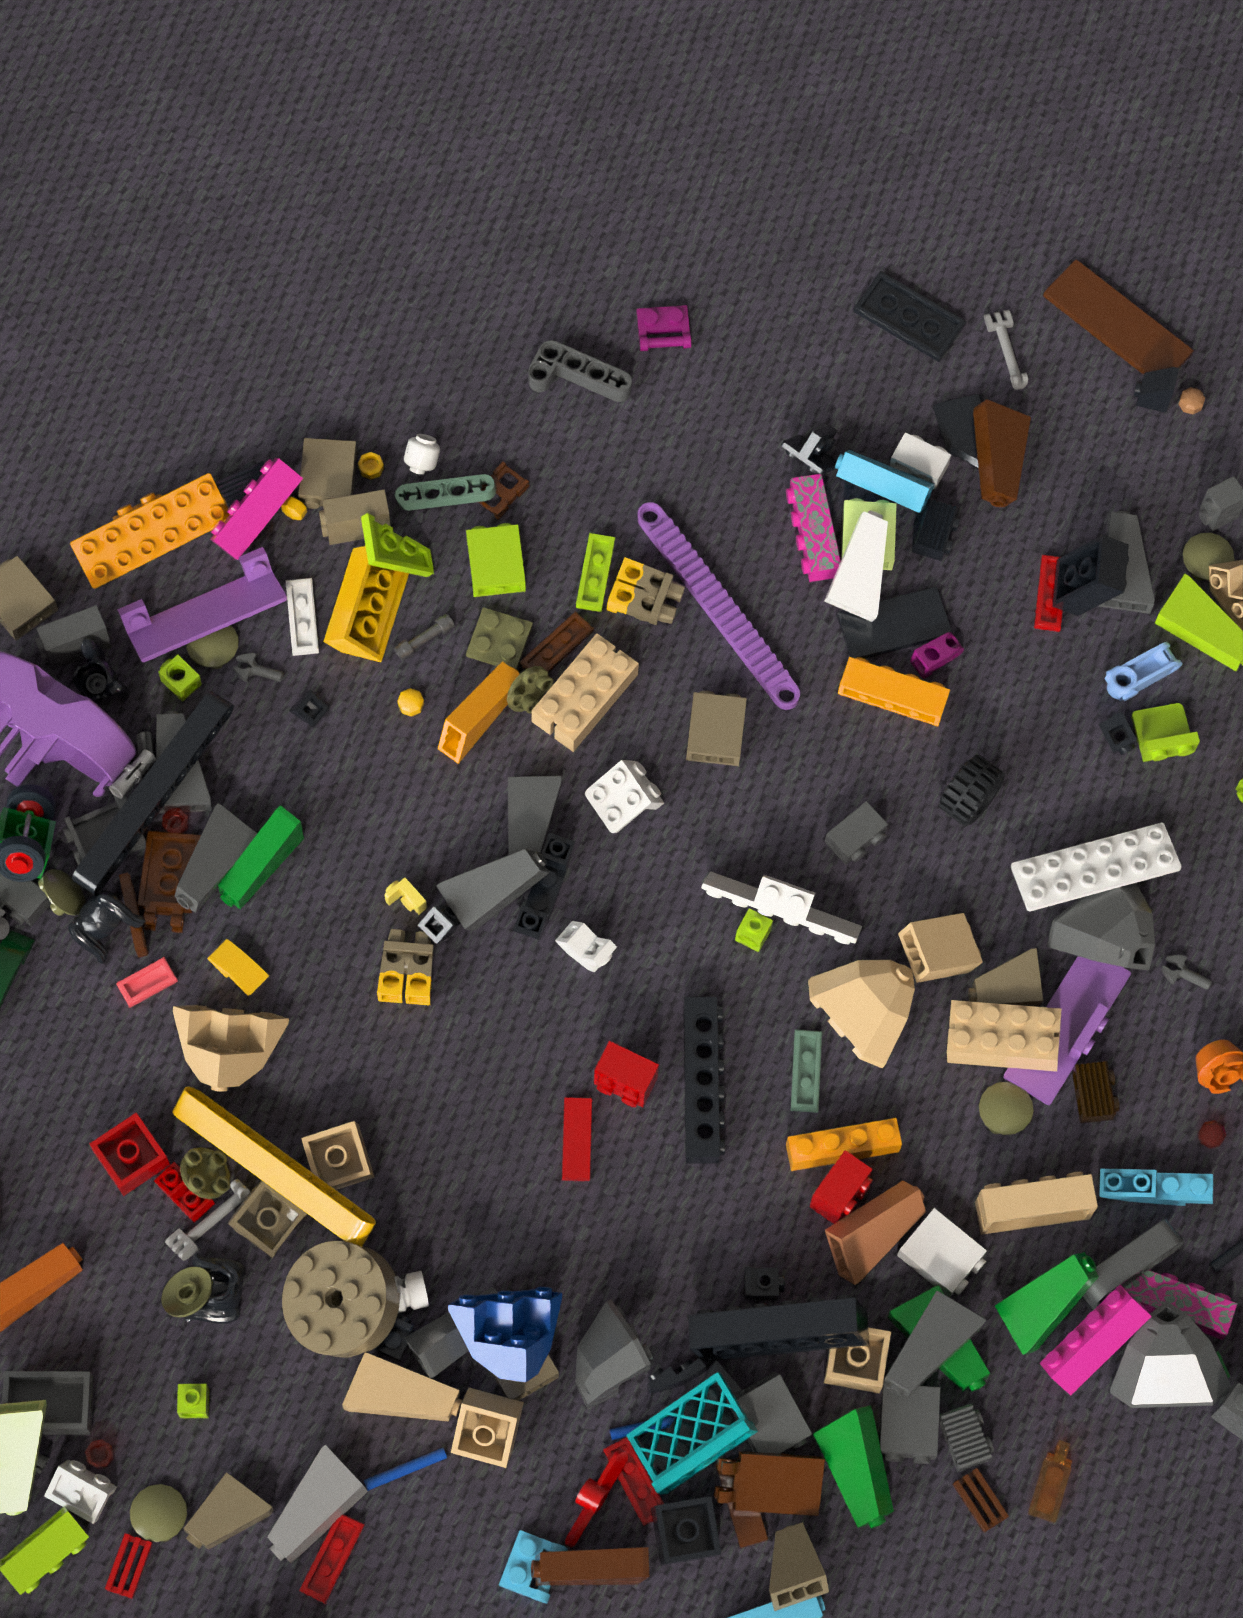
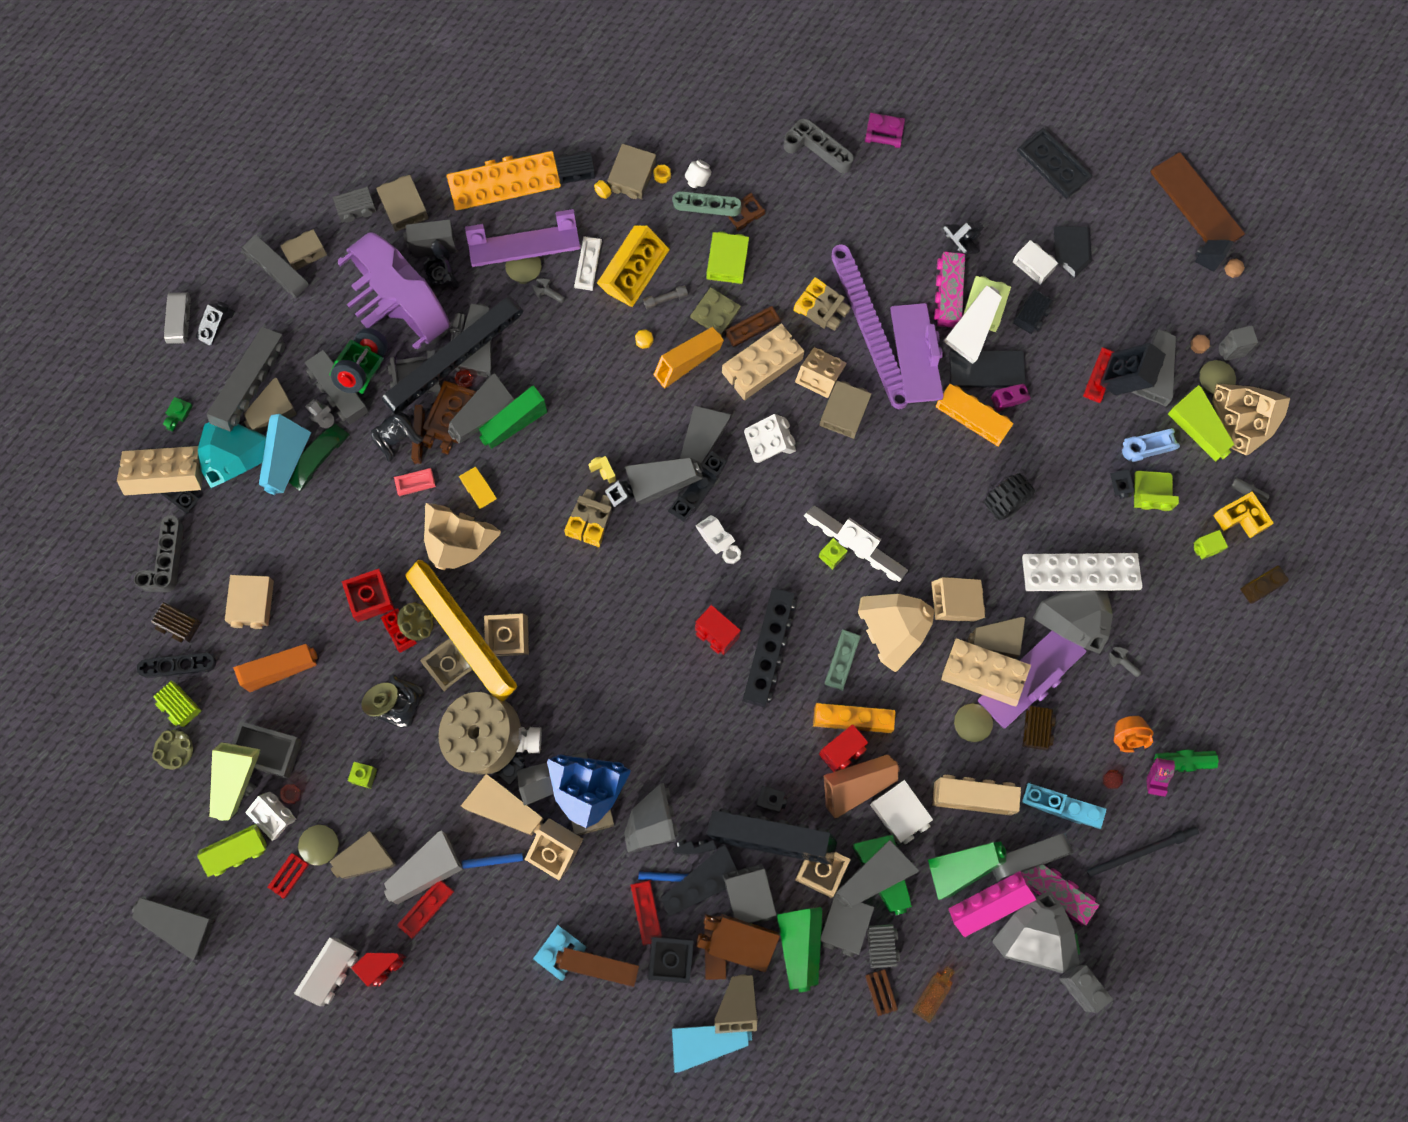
camera: 15 degrees right, 5 degrees up
(62, 892) = (373, 407): olive dish -> none
(137, 768) = (442, 339): light grey pin -> none
(184, 687) = (494, 290): lime brick -> none
(184, 1244) = (387, 665): light grey hinge -> none
(256, 508) = (576, 182): dark pink brick -> none
(310, 709) = (575, 326): black slope -> none
(342, 515) = (641, 205): dark tan brick -> none
(394, 552) = (659, 234): lime wing -> none
(528, 689) = (724, 349): olive dish -> none
(576, 1139) = (672, 665): red tile -> none
(594, 1495) = (614, 915): red piece -> none
(595, 572) = (793, 282): lime plate -> none
(616, 967) = (732, 554): none -> white tile
(667, 686) = (820, 372): none -> tan bracket
(699, 1457) = (692, 910): teal fence -> none
(793, 625) = (917, 352): none -> medium lavender bracket
(856, 834) = (921, 506): dark grey brick -> none
(884, 480) = (1007, 269): medium azure slope -> none
(1000, 450) = (1092, 268): reddish brown slope -> none
(1018, 380) = (1118, 224): light grey hinge -> none
(1173, 516) = (1200, 344): none -> medium nougat tile

